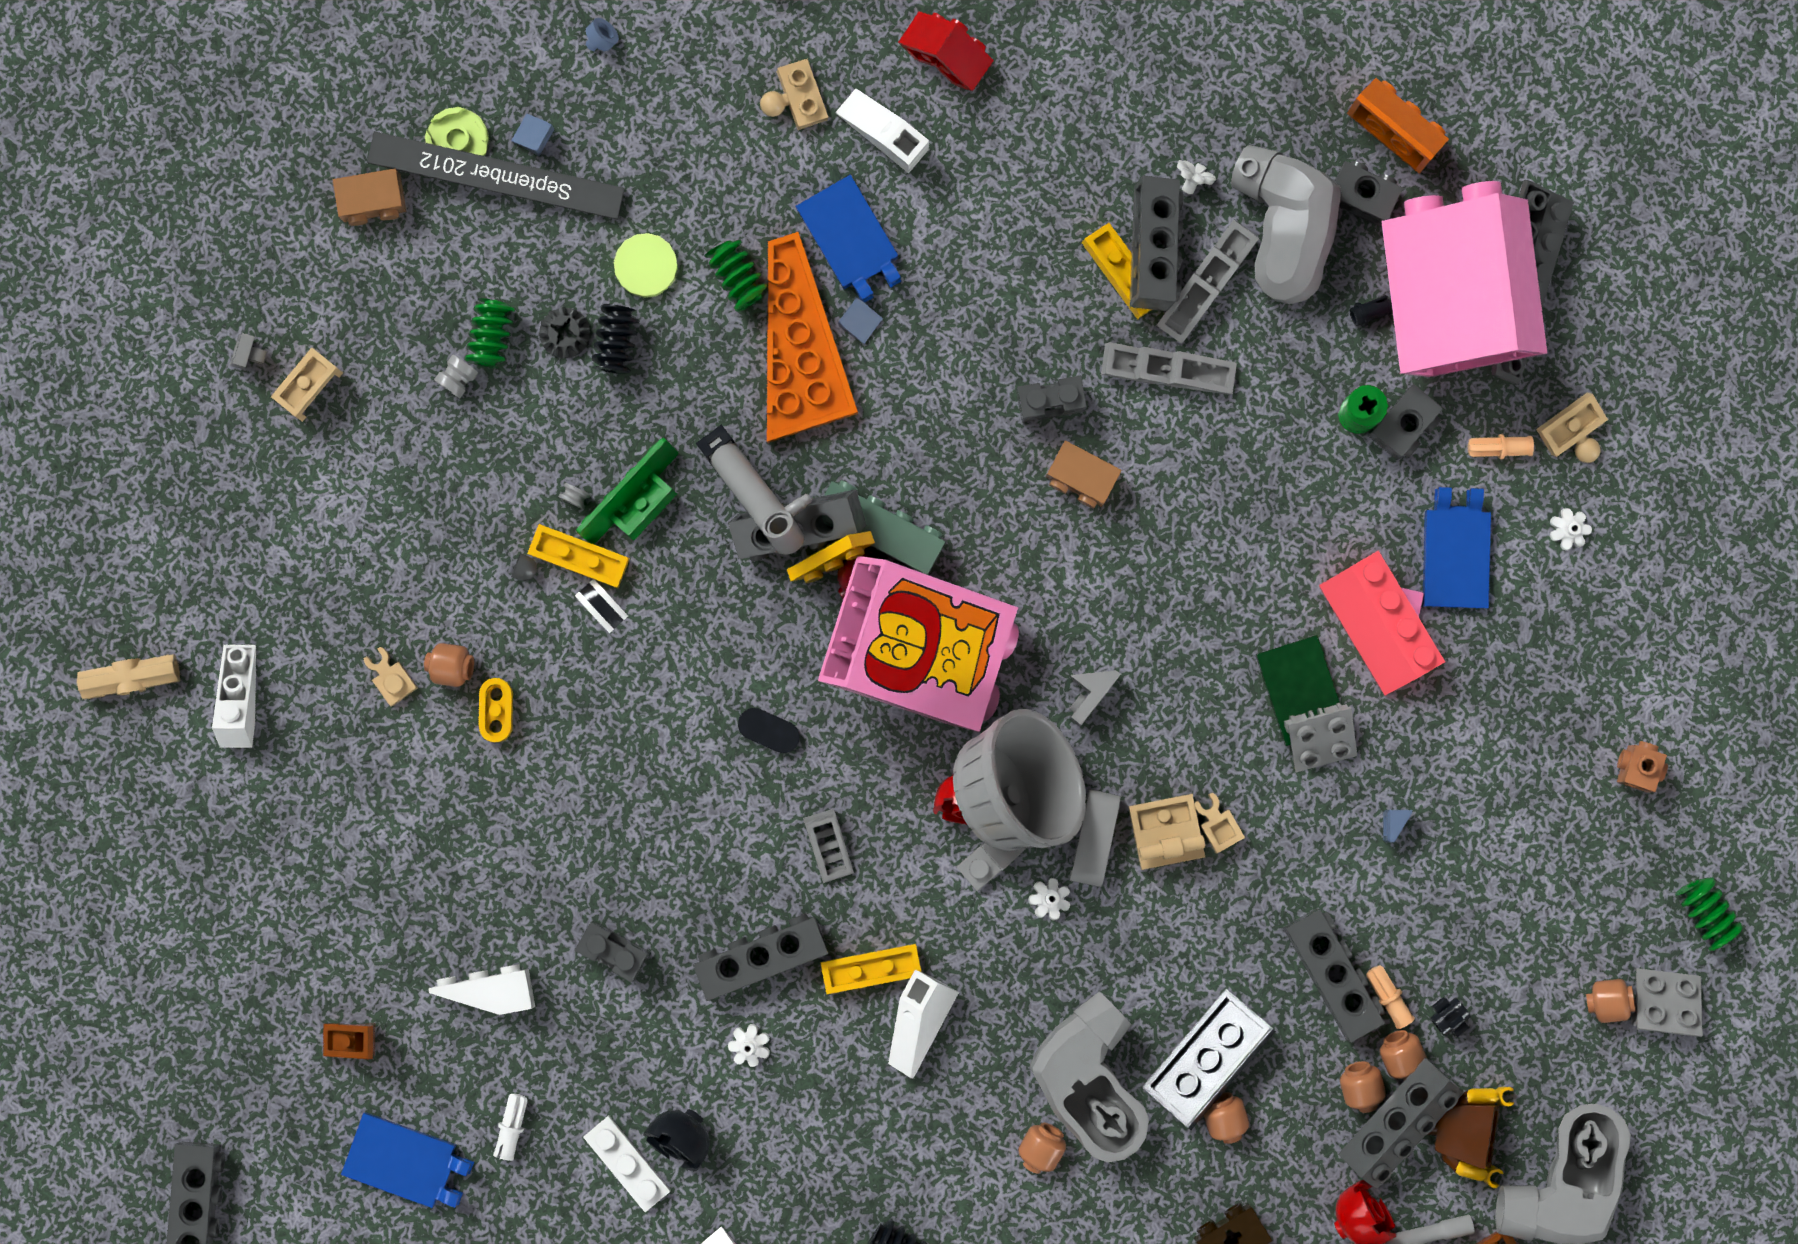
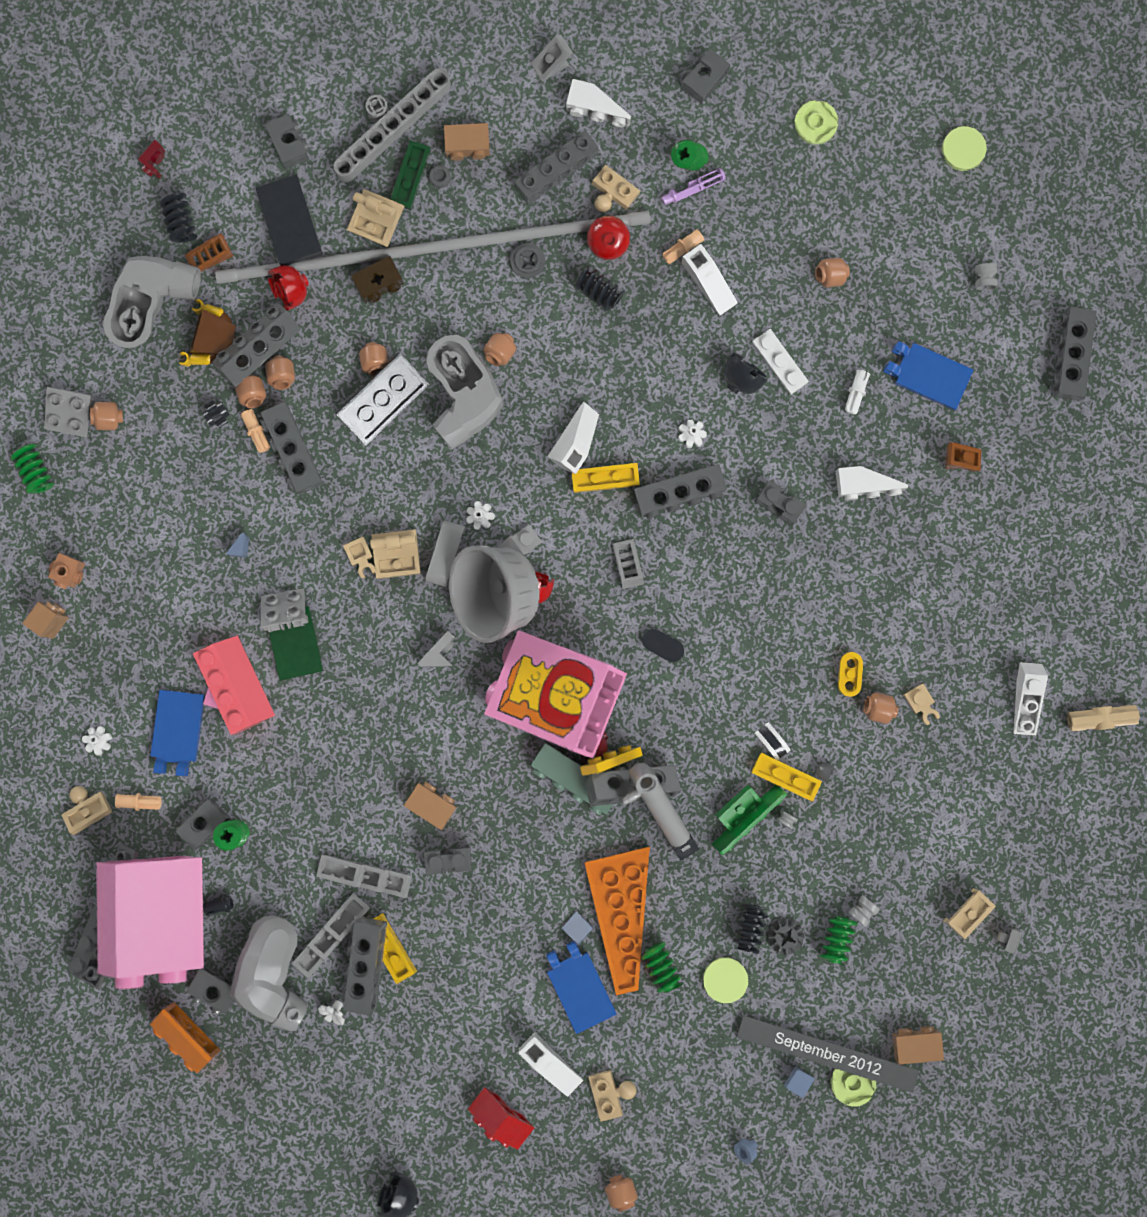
camera: 175 degrees left, 0 degrees up
(1662, 694) = (46, 619): none -> medium nougat brick

